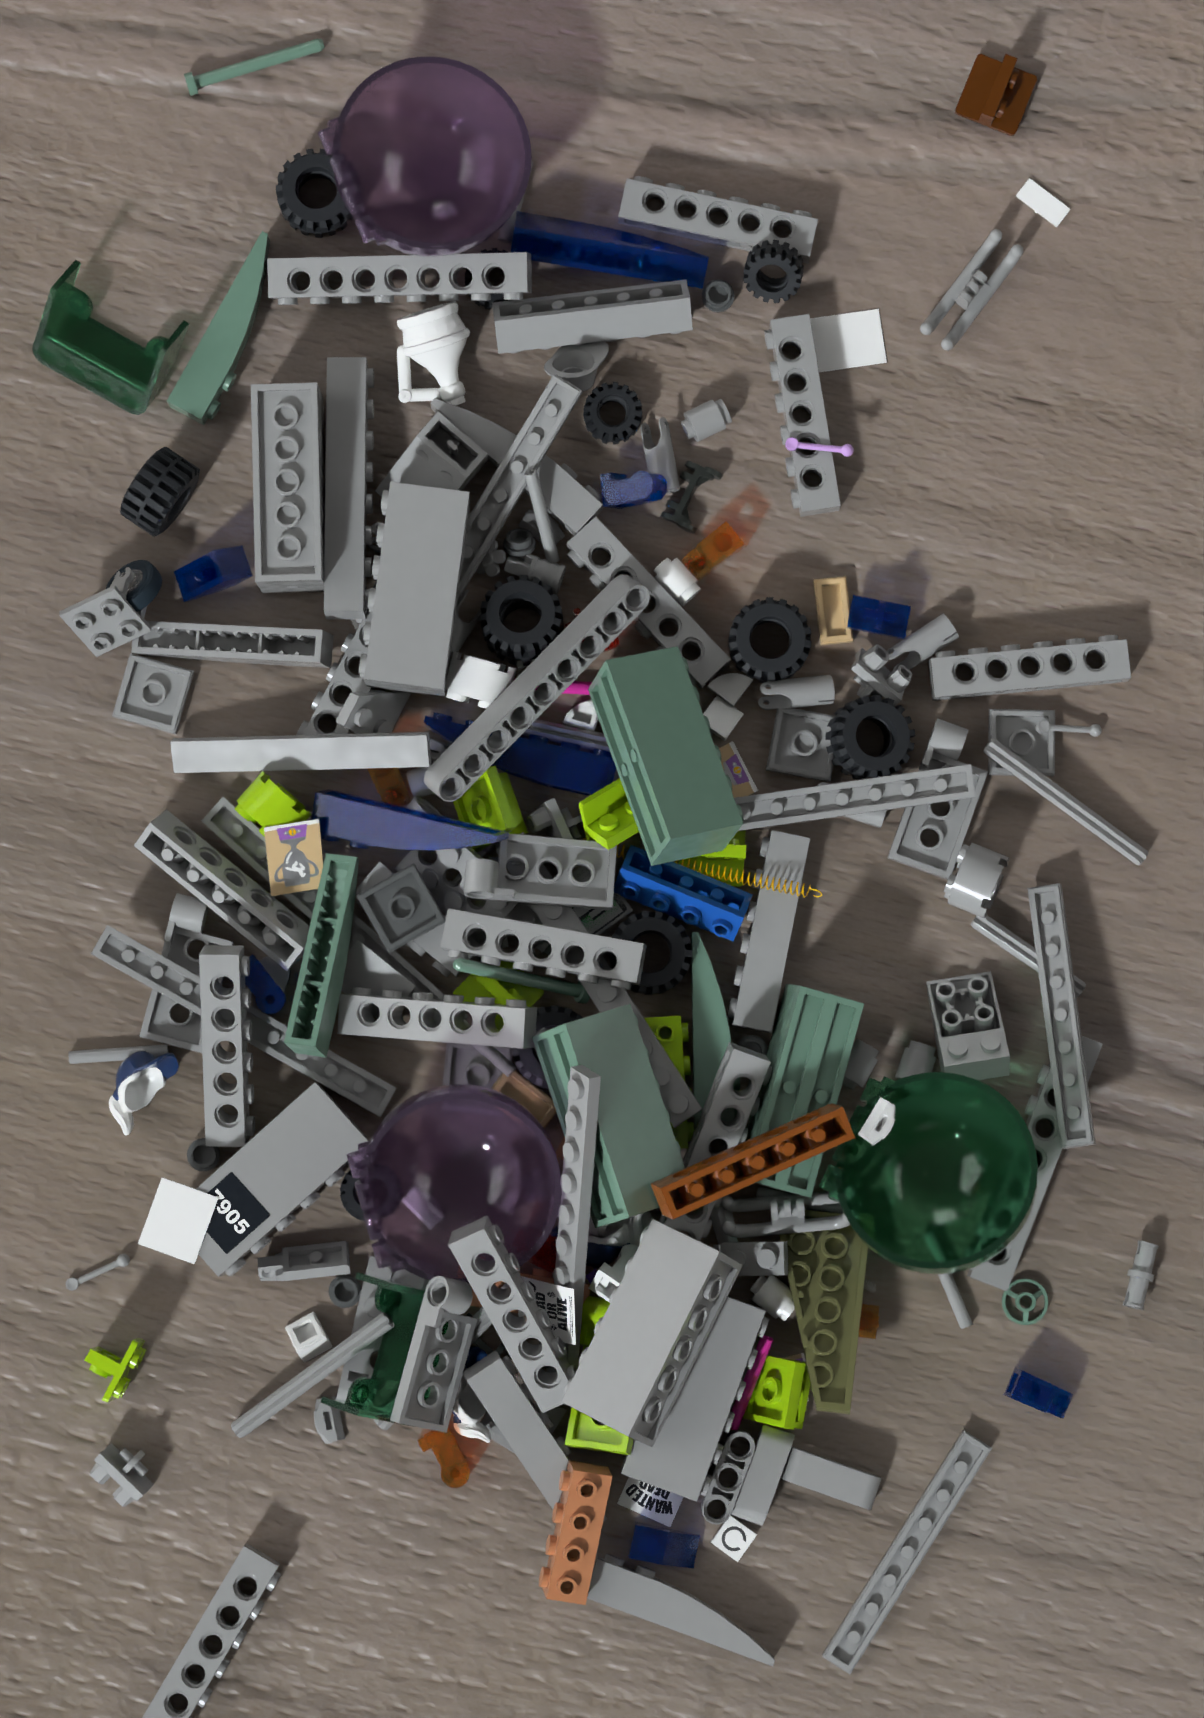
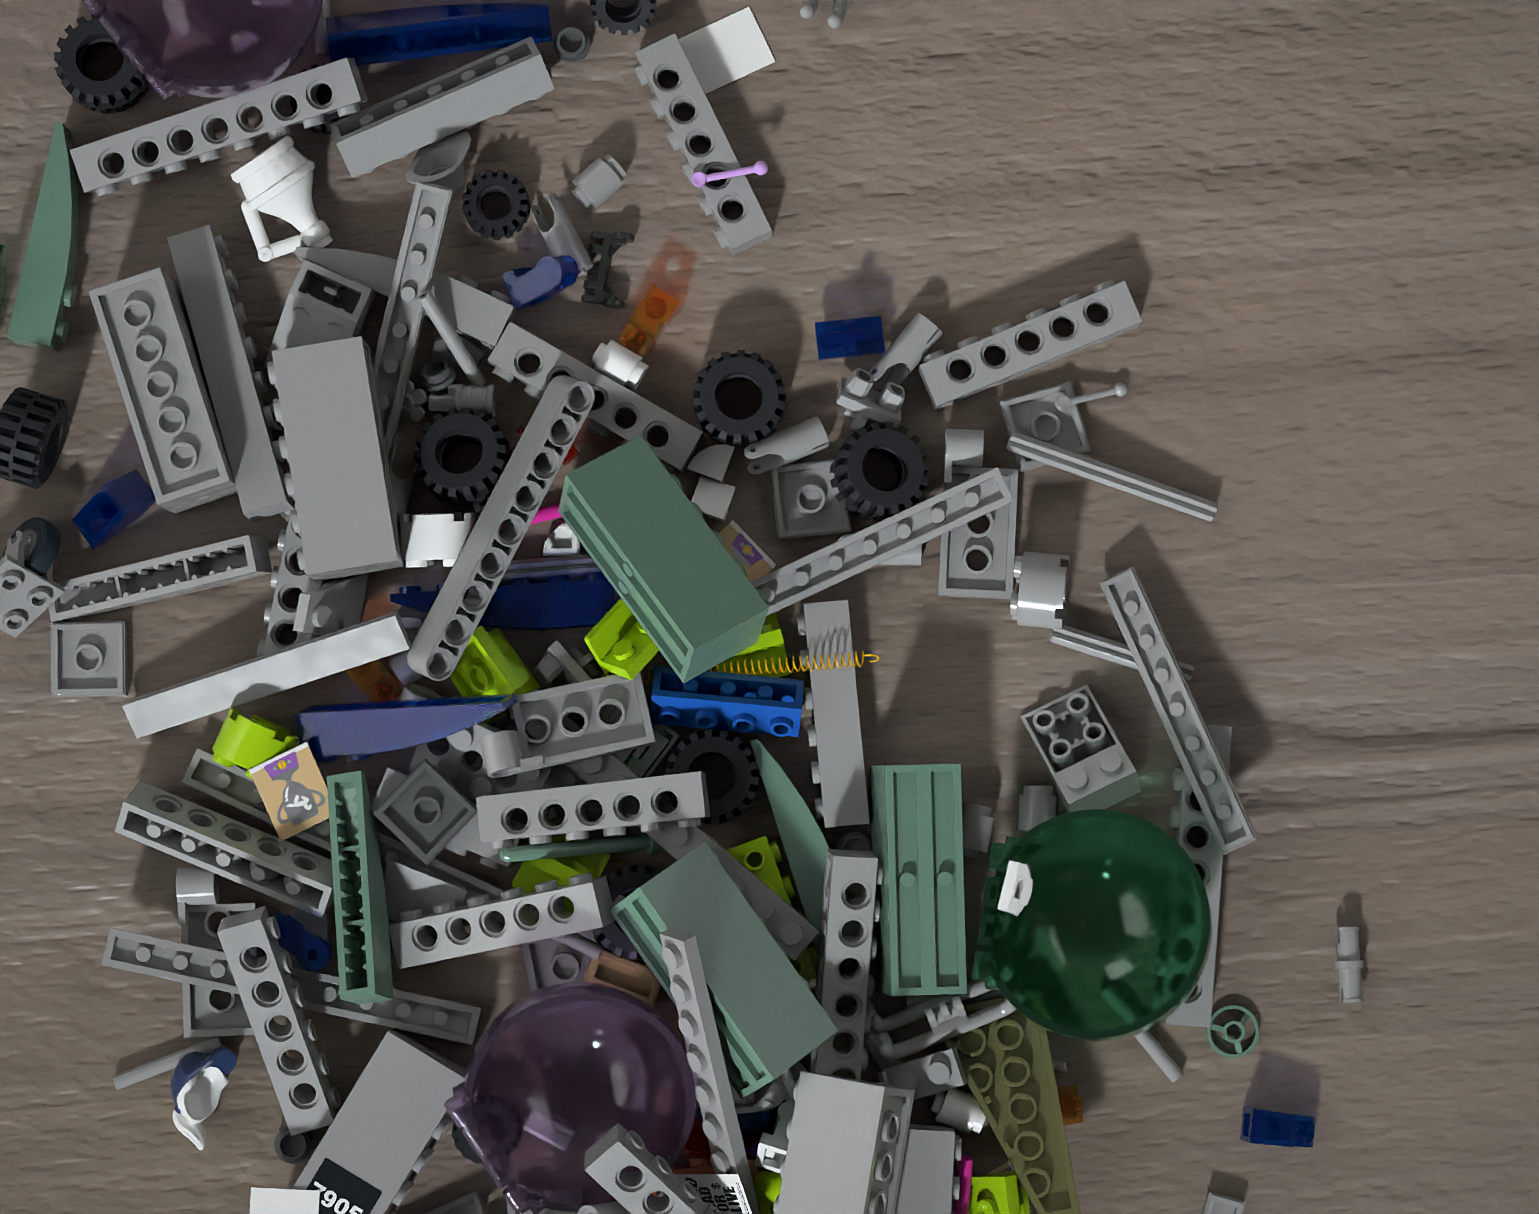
camera: 10 degrees left, 0 degrees up
(752, 1160) = (890, 975): dark orange brick -> none
(832, 610) = (798, 346): tan tile -> none

